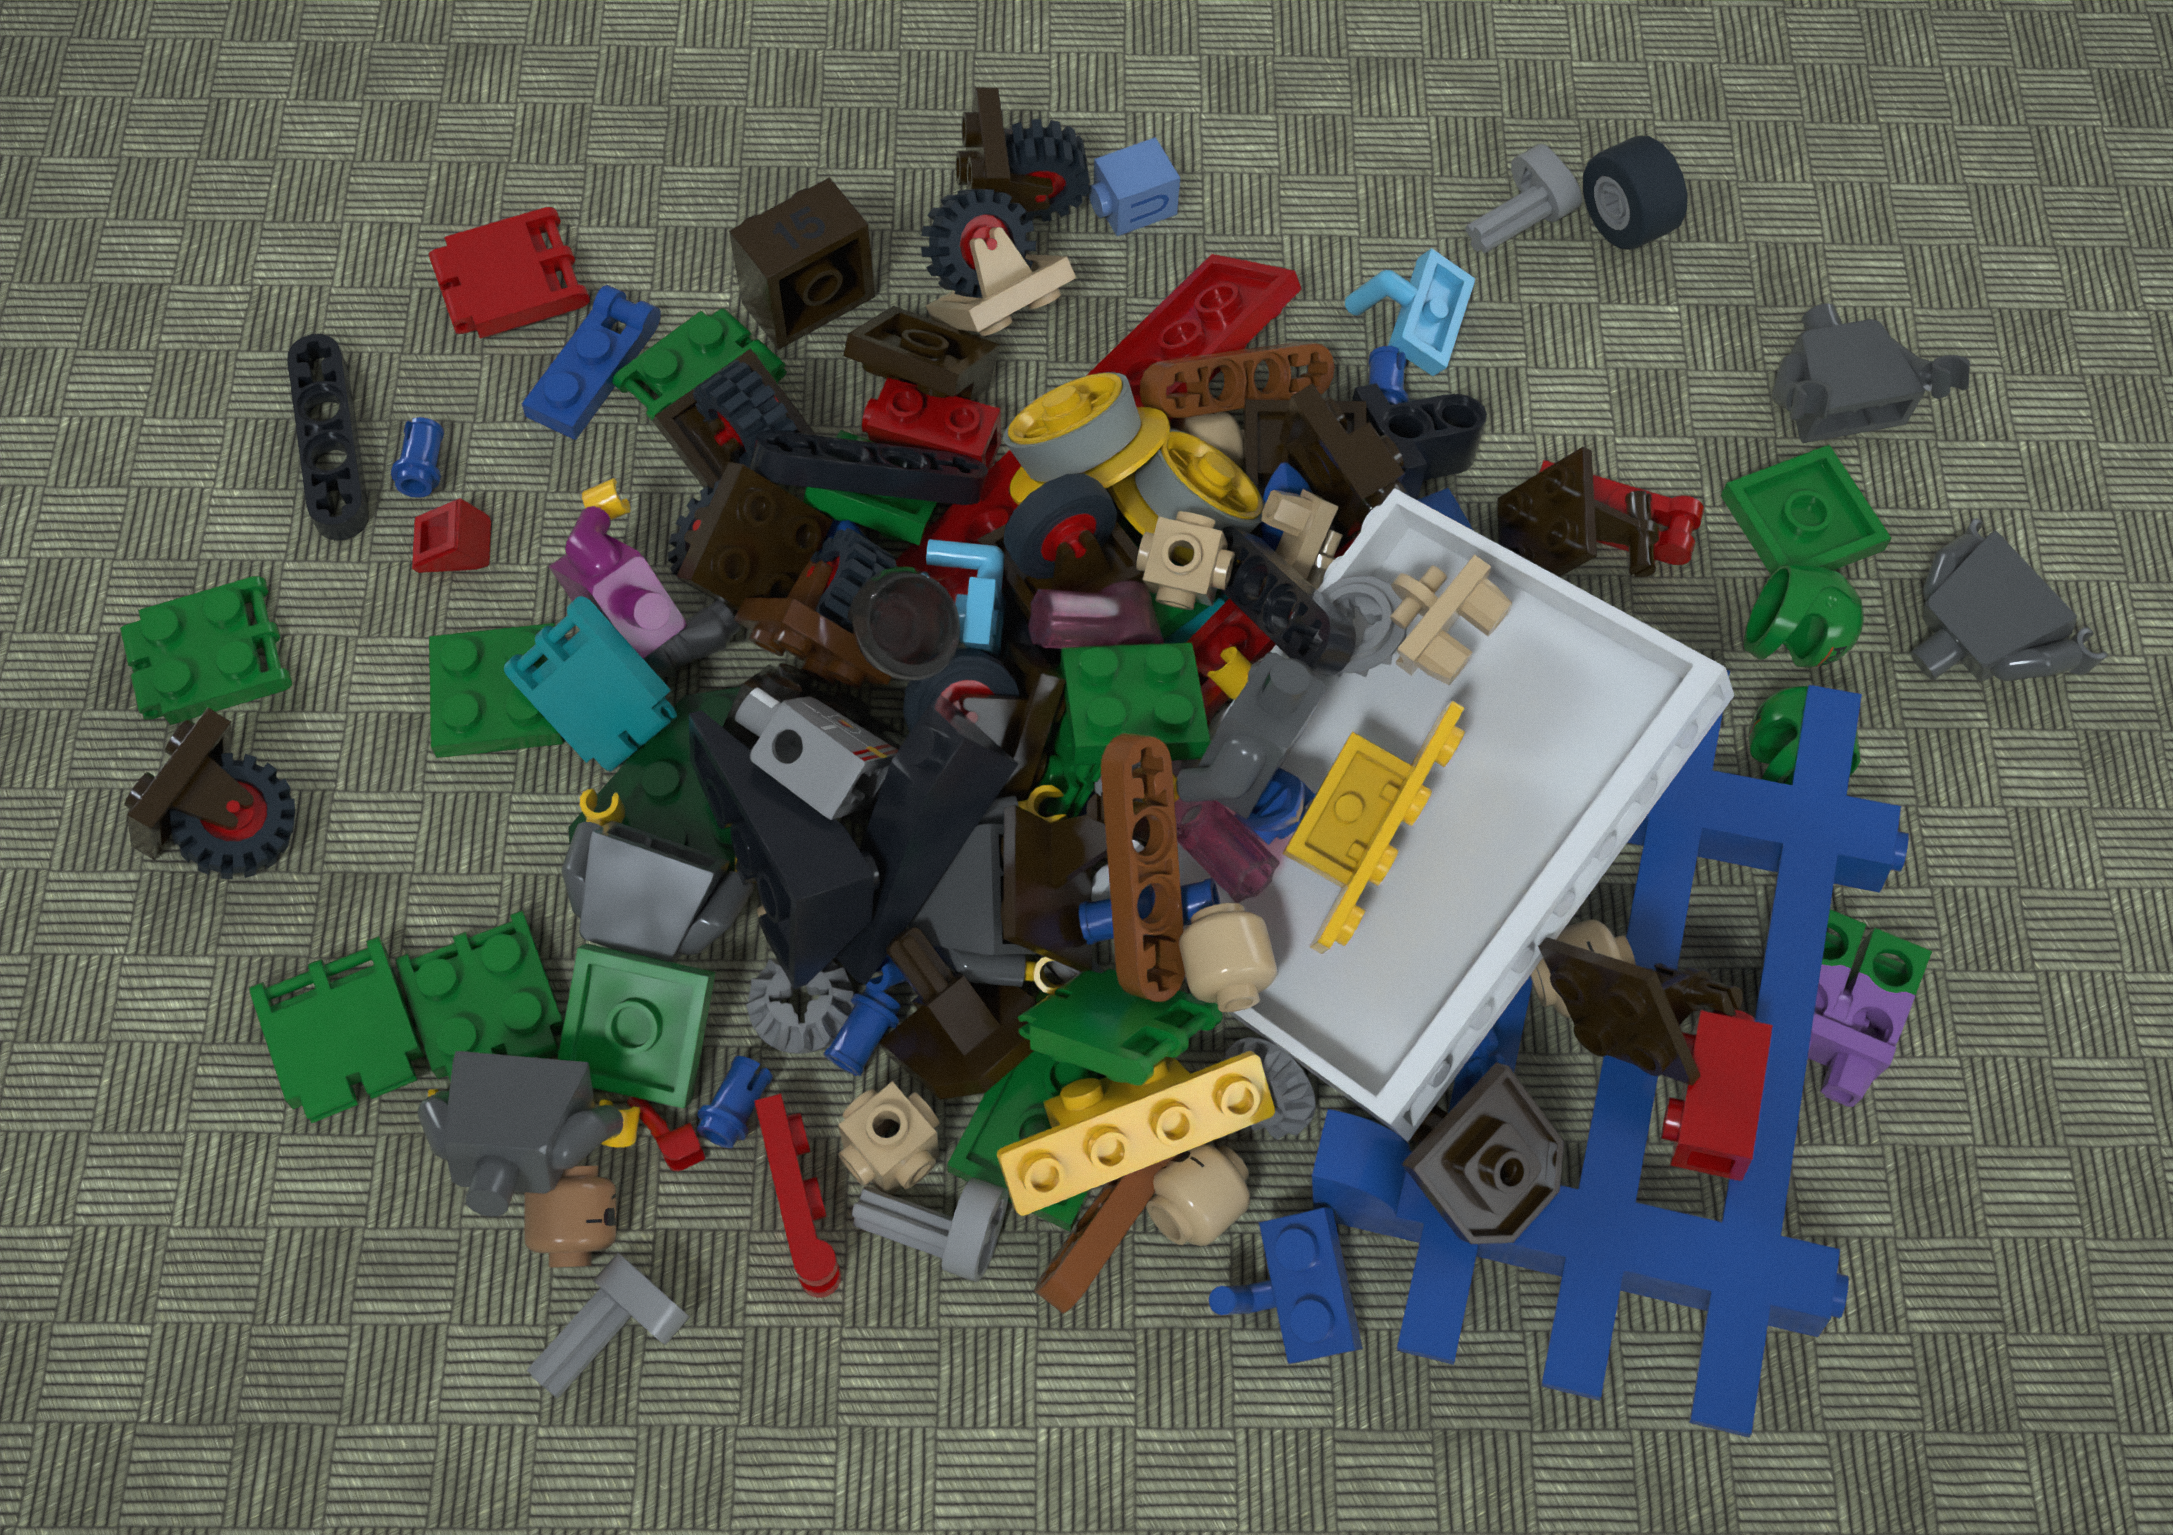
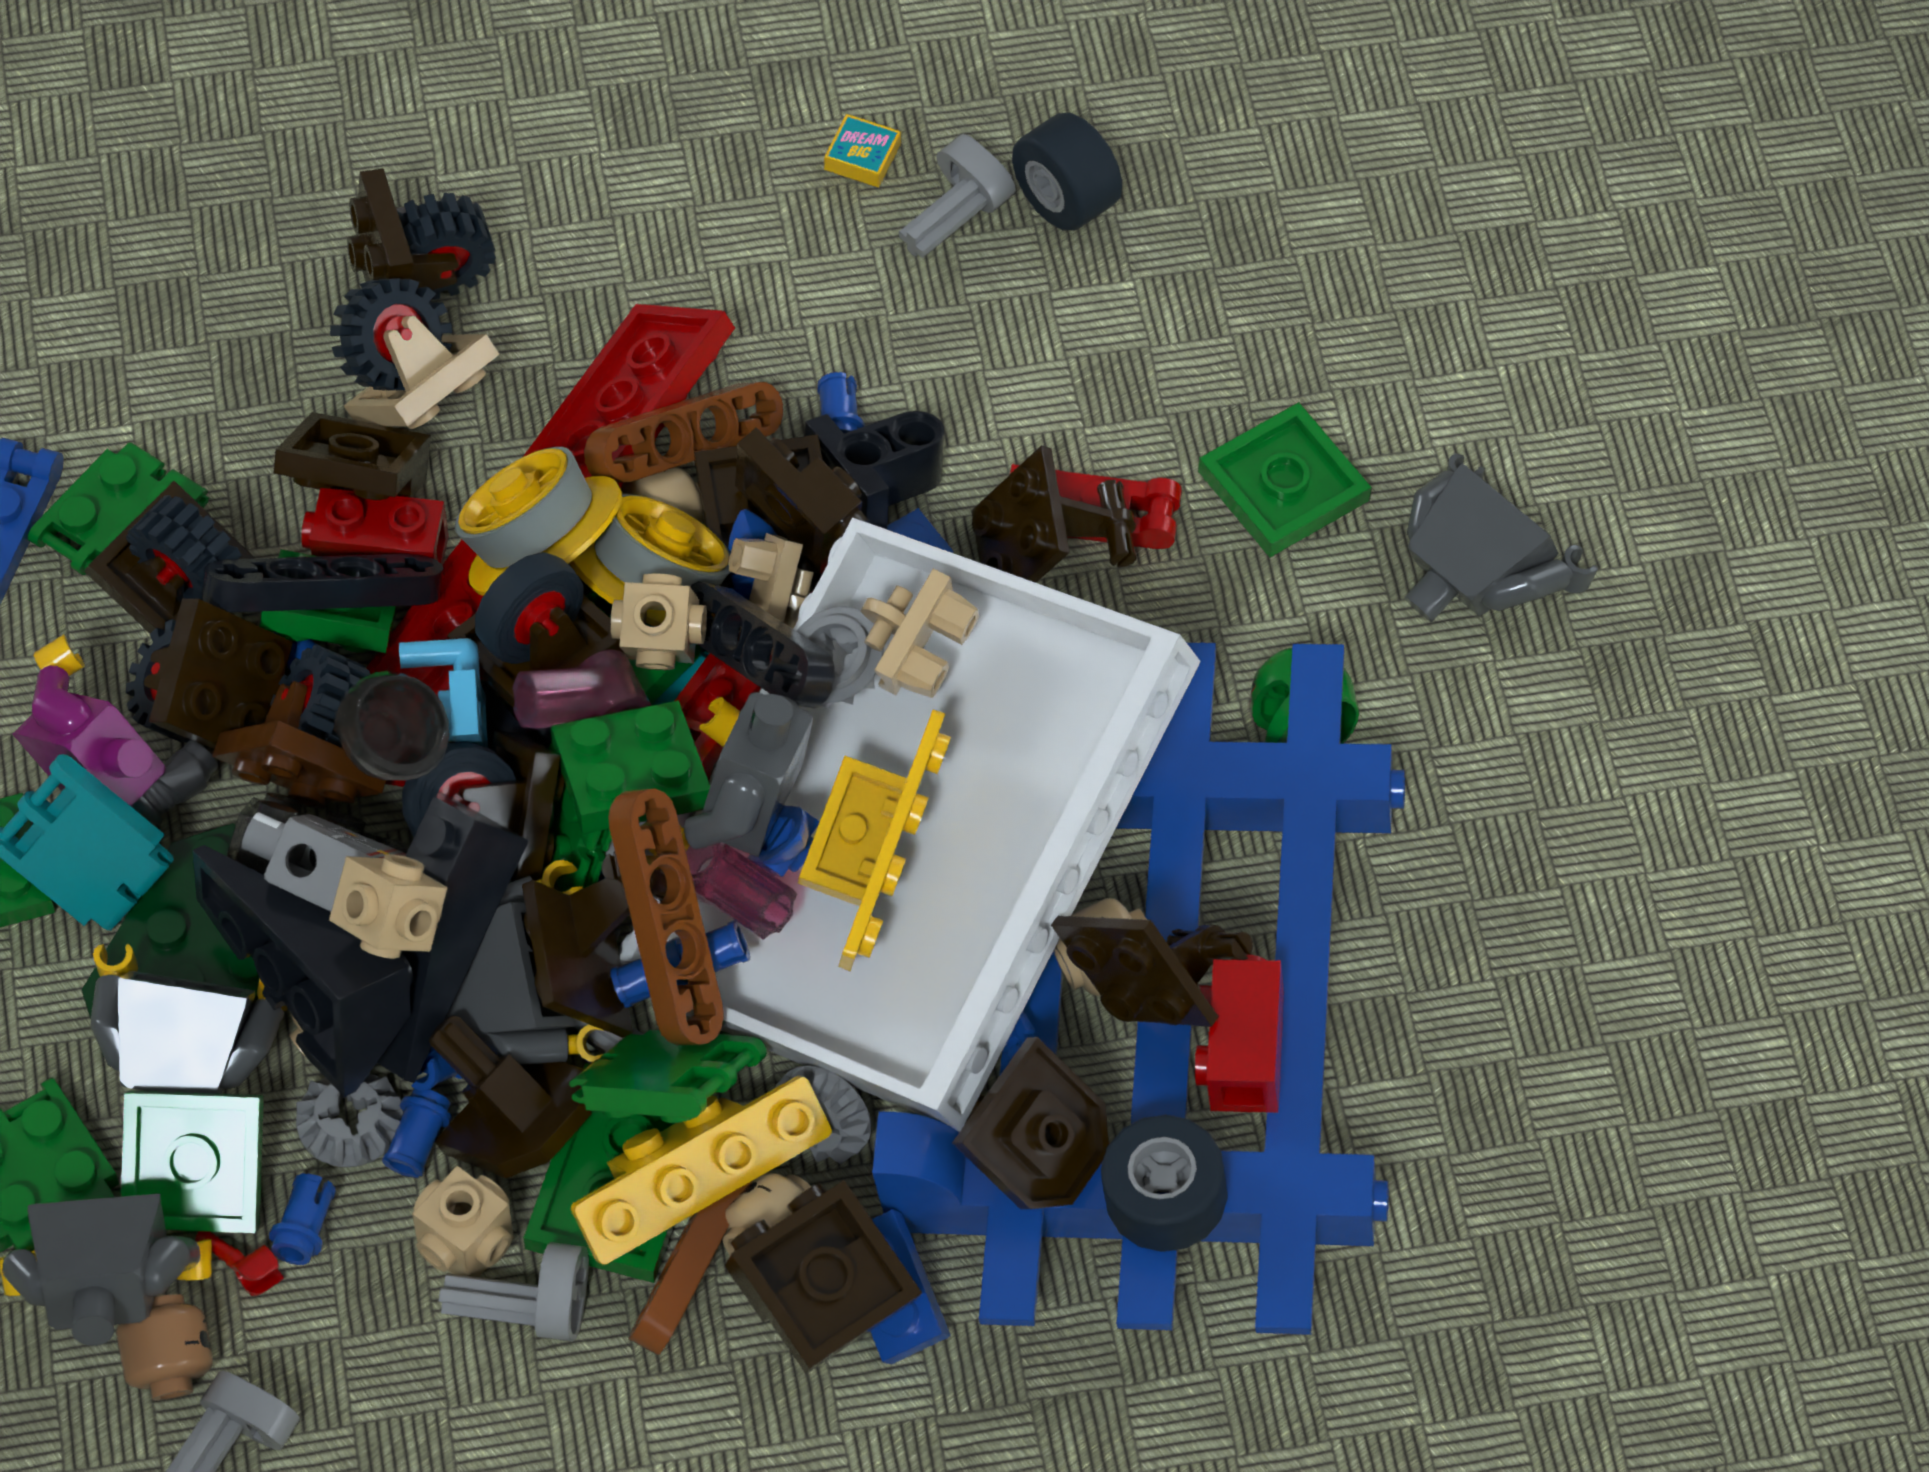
camera: 10 degrees left, 5 degrees down
(797, 1198) = (384, 1295): red plate -> none
(803, 262) = (209, 383): dark brown brick -> none
(863, 810) = (388, 904): none -> tan brick
(1135, 187) = (543, 245): medium blue brick -> none
(1227, 956) = (760, 988): tan head -> none
(1242, 1273) = (821, 1274): none -> dark brown plate
(1429, 309) = (872, 323): medium azure plate -> none
(1442, 147) = (862, 150): none -> tile
(1632, 1221) = (1169, 1157): none -> black wheel
(1807, 612) = (1295, 574): green helmet -> none
(1856, 377) = (1317, 329): dark grey torso -> none
(1861, 1019) = (1384, 964): medium lavender hips -> none

